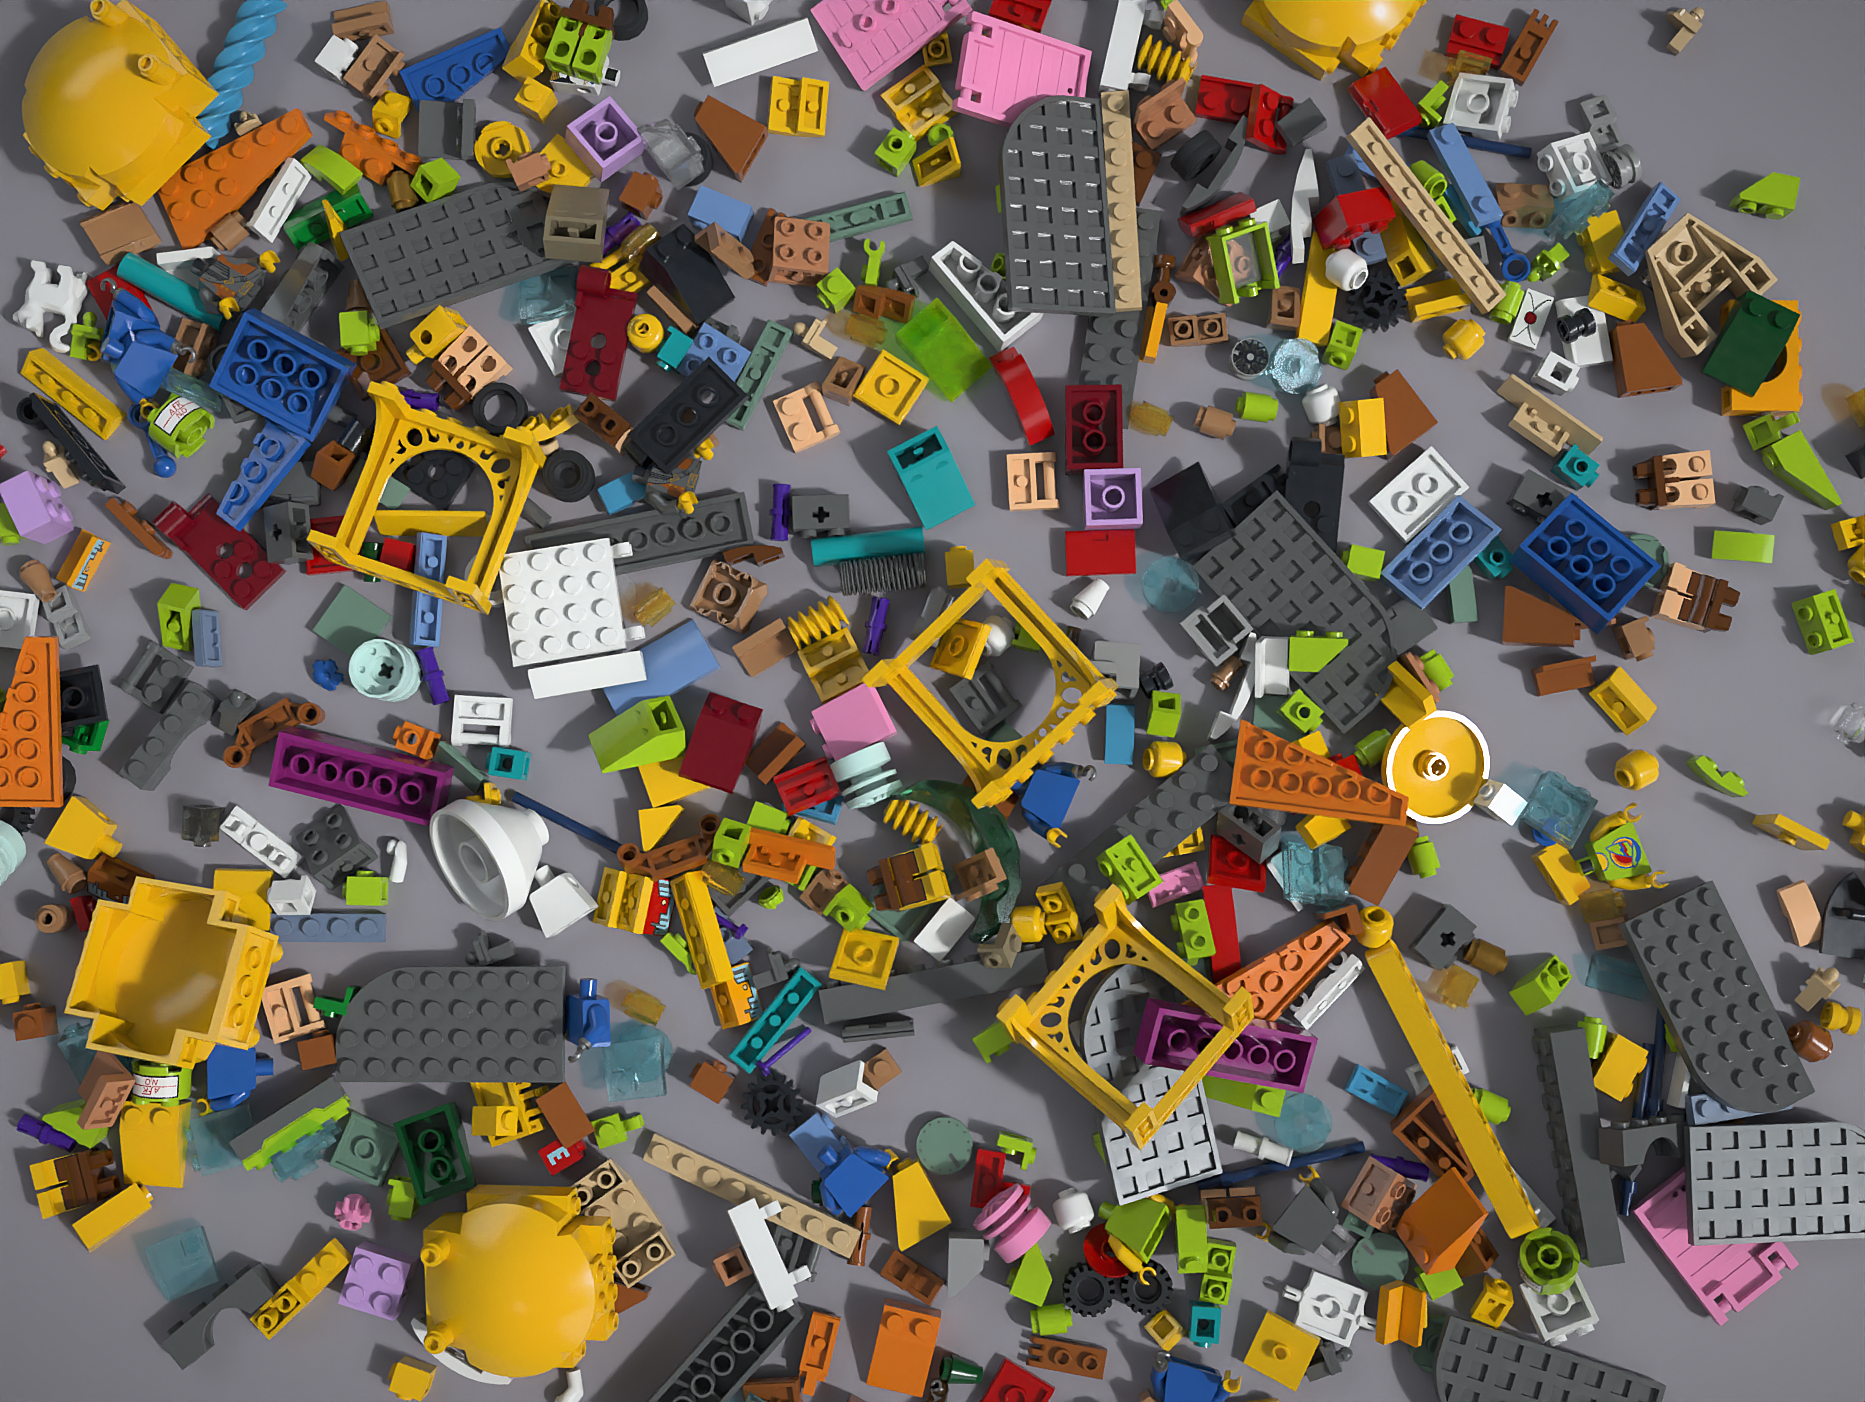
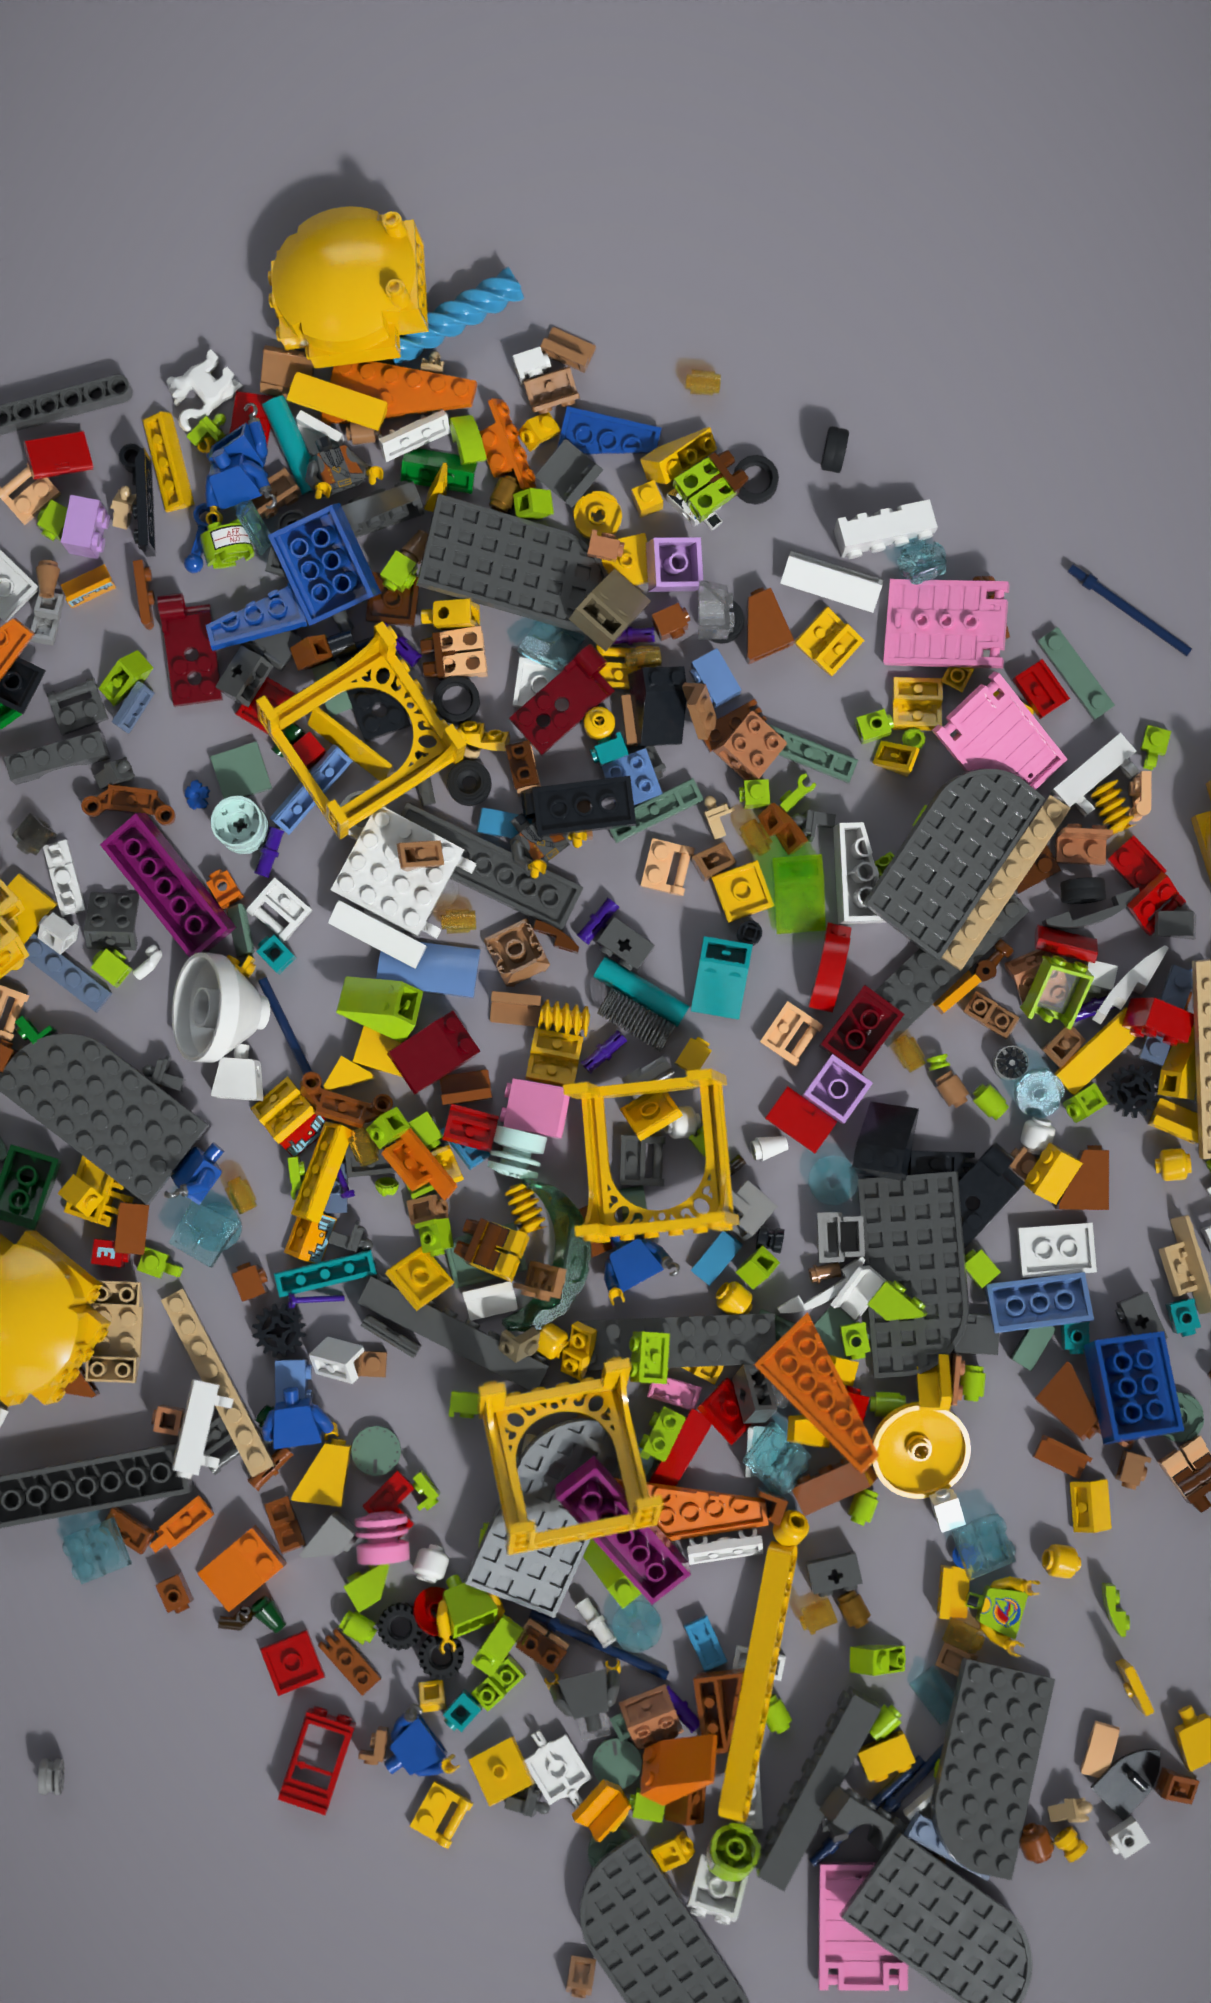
camera: 30 degrees right, 0 degrees up
(184, 219) = (337, 401): none -> yellow slope
(570, 571) = (420, 855): none -> medium nougat slope
(924, 423) = (749, 936): none -> black wheel
(1183, 407) = (938, 1062): none -> lime bush
(1346, 269) = (1126, 1053): white head -> none

